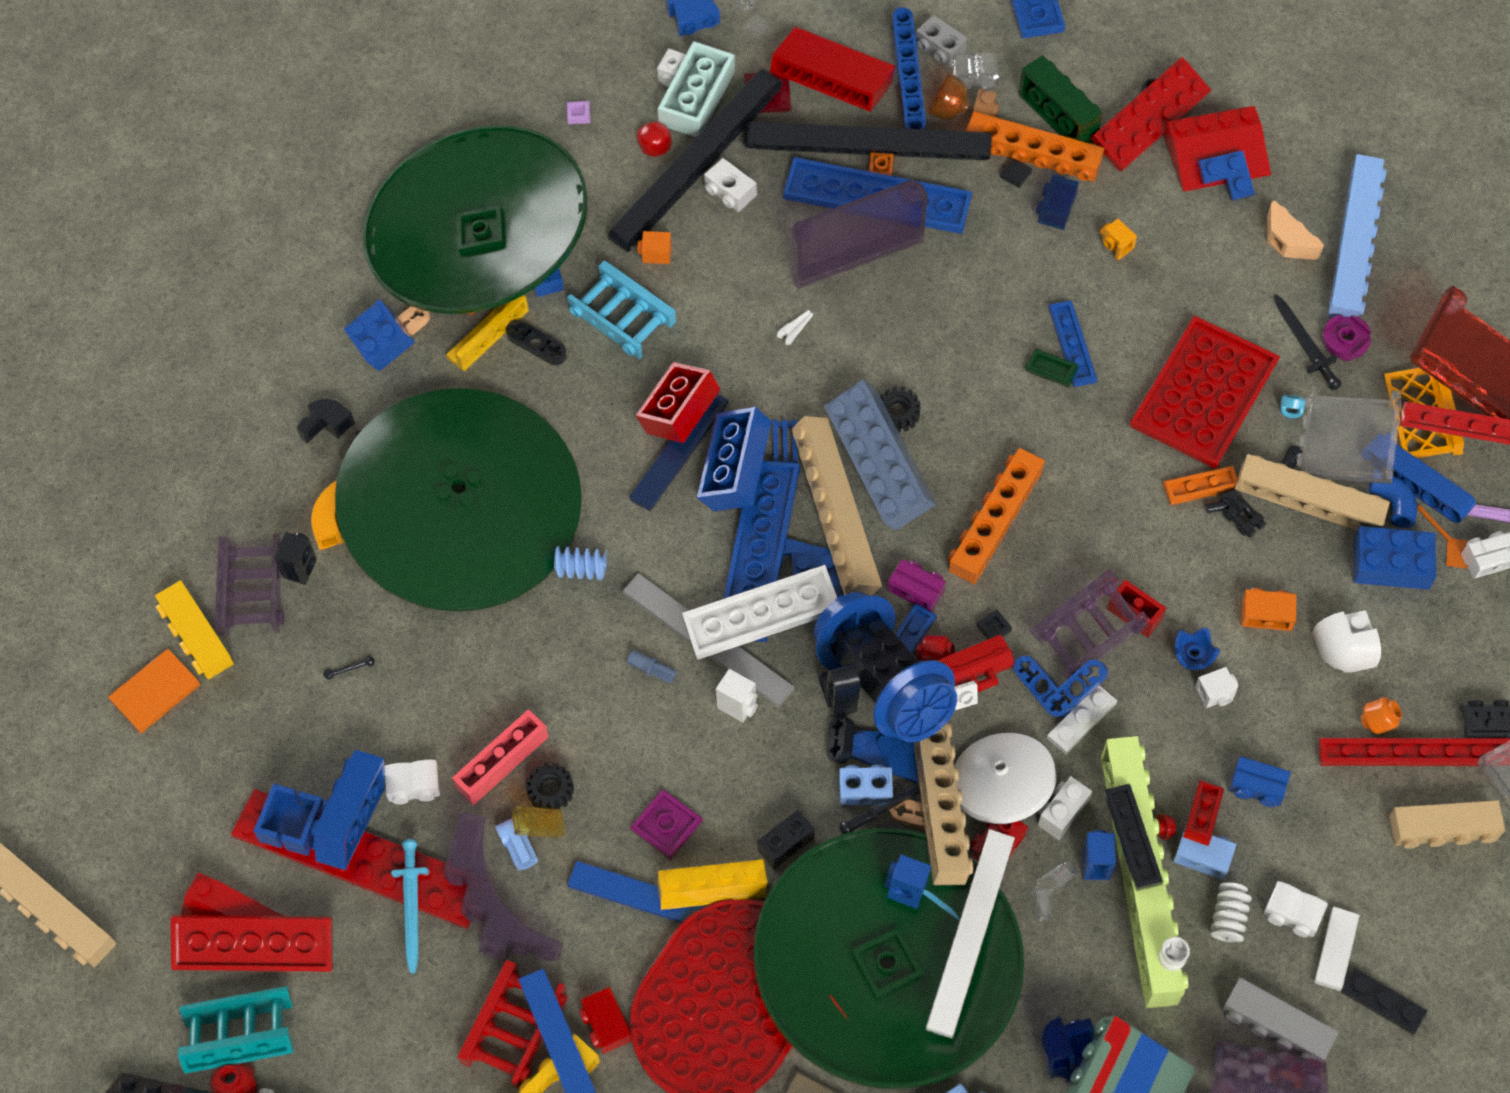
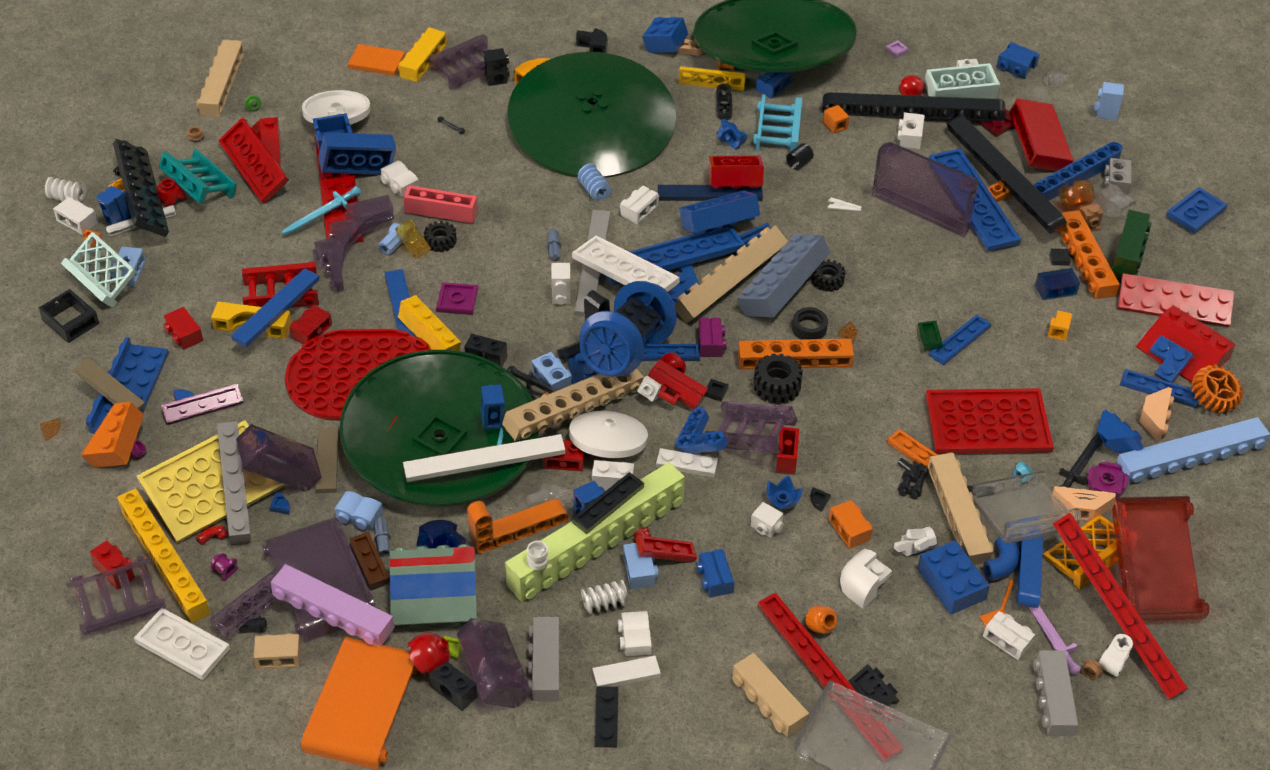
camera: 55 degrees right, 15 degrees down
(128, 889) = (249, 100): none -> bright green plate
(130, 988) = (195, 133): none -> medium nougat plate
(225, 789) = (336, 102): none -> white dish
(601, 369) = (729, 133): none -> blue hips
(651, 535) = (639, 204): none -> white brick
(690, 318) = (801, 154): none -> black piece
(959, 490) = (812, 314): none -> black tyre
(994, 443) = (848, 332): none -> clear orange tile
(1025, 572) = (777, 389): none -> black tyre
(1074, 980) = (493, 534): none -> orange beam
(1211, 617) = (819, 498): none -> black tile
(1252, 209) = (1151, 385): none -> blue tile
(1296, 162) = (1217, 389): none -> orange gear
(1303, 289) = (1117, 434): none -> blue slope
(1326, 561) = (916, 541): none -> white rock
(1368, 378) = (1088, 502): none -> light nougat slope

